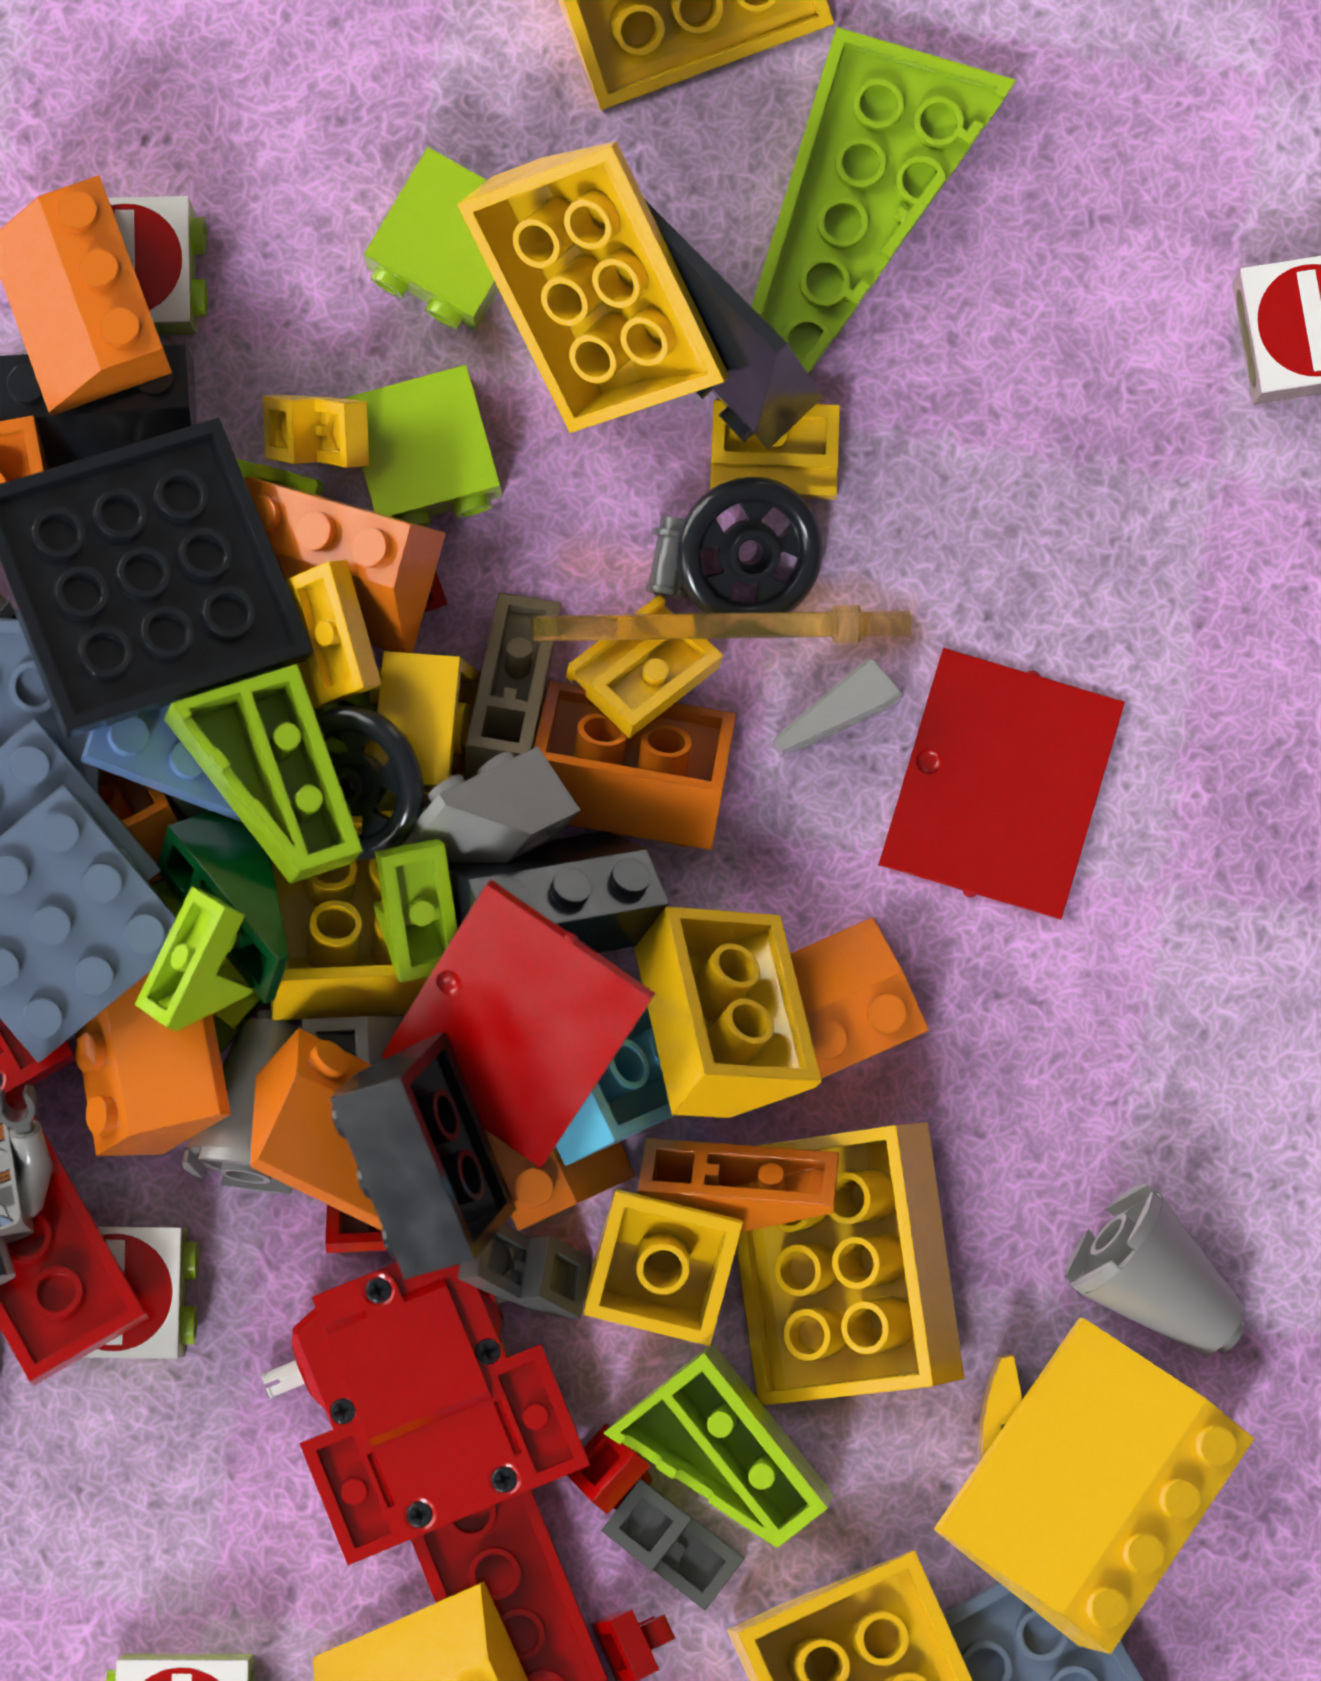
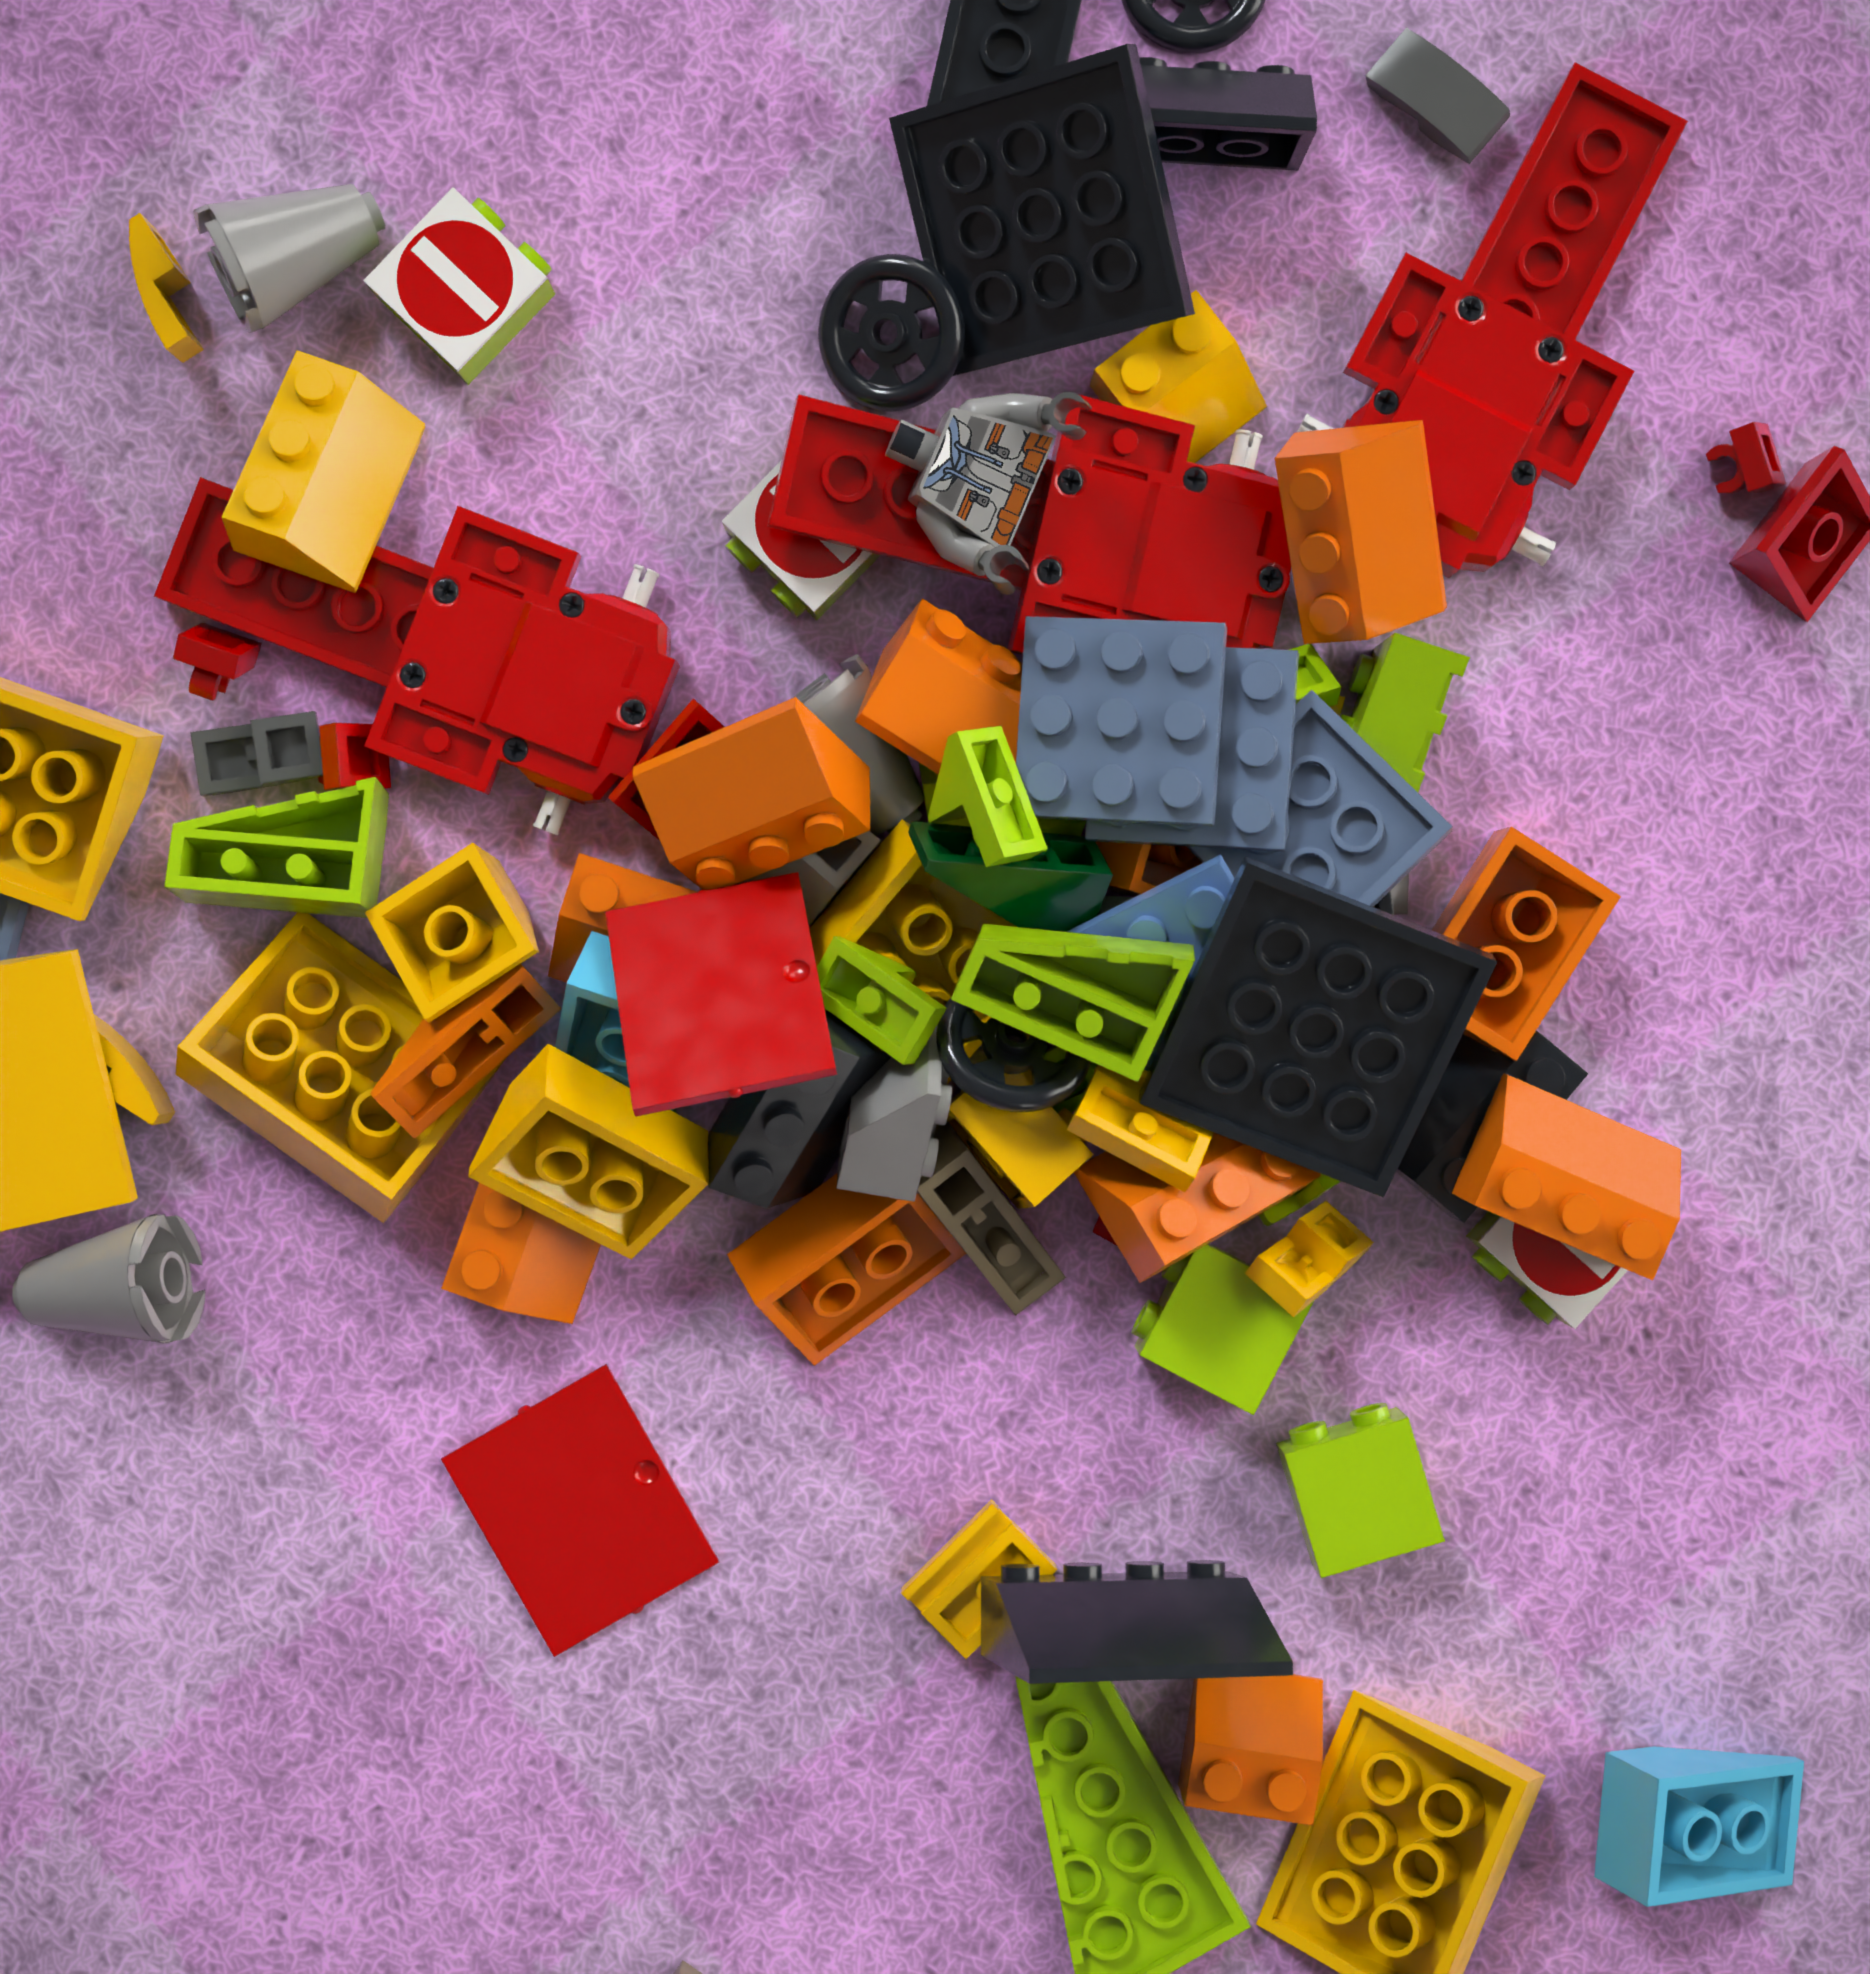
camera: 140 degrees right, 5 degrees up
(423, 1157) = (685, 830): black slope -> none
(531, 1272) = (552, 832): dark grey slope -> none
(591, 285) = (1221, 1572): yellow slope -> none
(642, 678) = (907, 1333): yellow plate -> none
(664, 571) = (971, 1429): dark grey pin -> none
(703, 147) = (1254, 1746): none -> orange slope
(756, 498) = (965, 1471): black plate -> none
(842, 624) = (805, 1504): clear yellow bar -> none
(851, 701) = (740, 1462): light grey slope -> none

